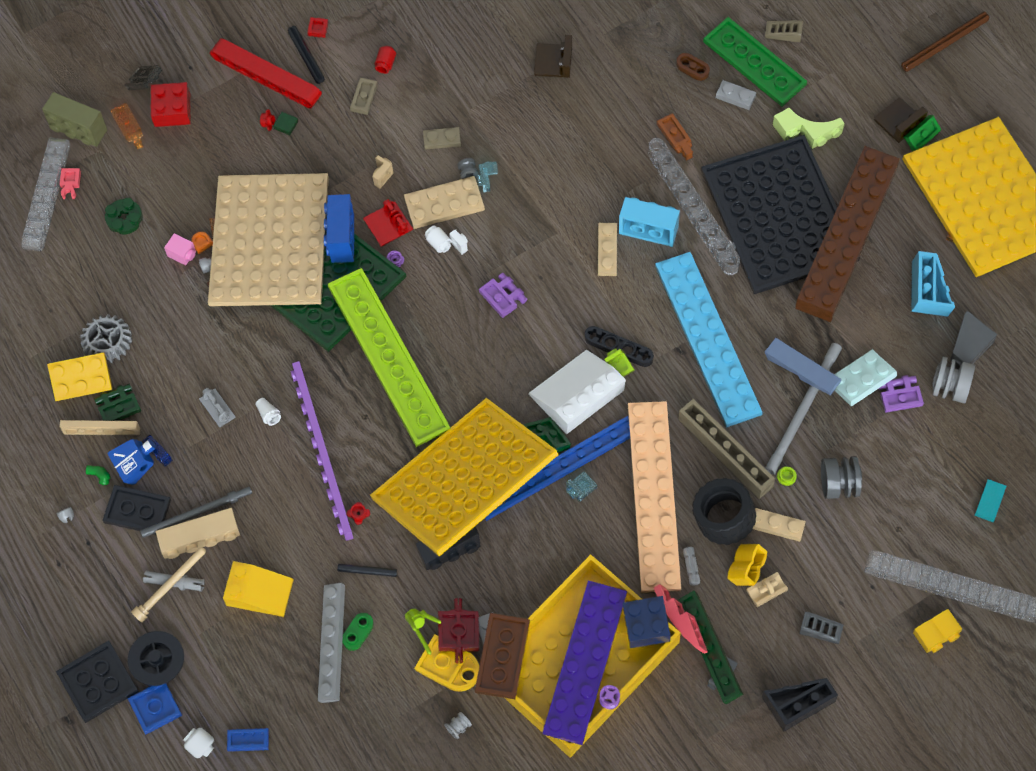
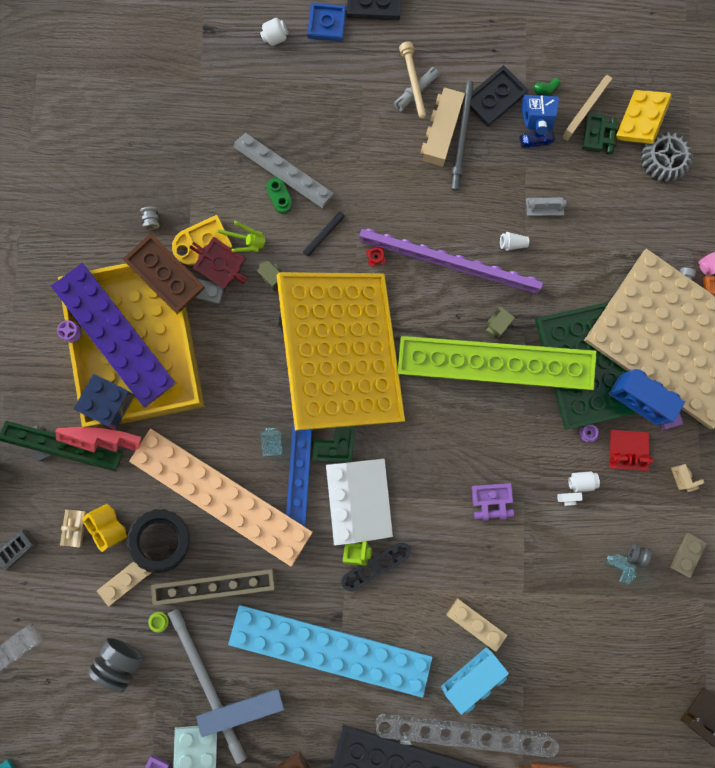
camera: 120 degrees right, 15 degrees up
(65, 513) = (528, 44): light grey hinge -> none
(155, 658) = (360, 37): black wheel -> none
(248, 739) = (252, 67): blue plate -> none
(257, 589) = (365, 142): yellow slope -> none
(350, 378) = (499, 323): none -> olive brick
(436, 584) = (268, 273): none -> olive brick
(444, 202) = (619, 513): tan plate -> none
(691, 566) = (142, 484): light grey axle -> none

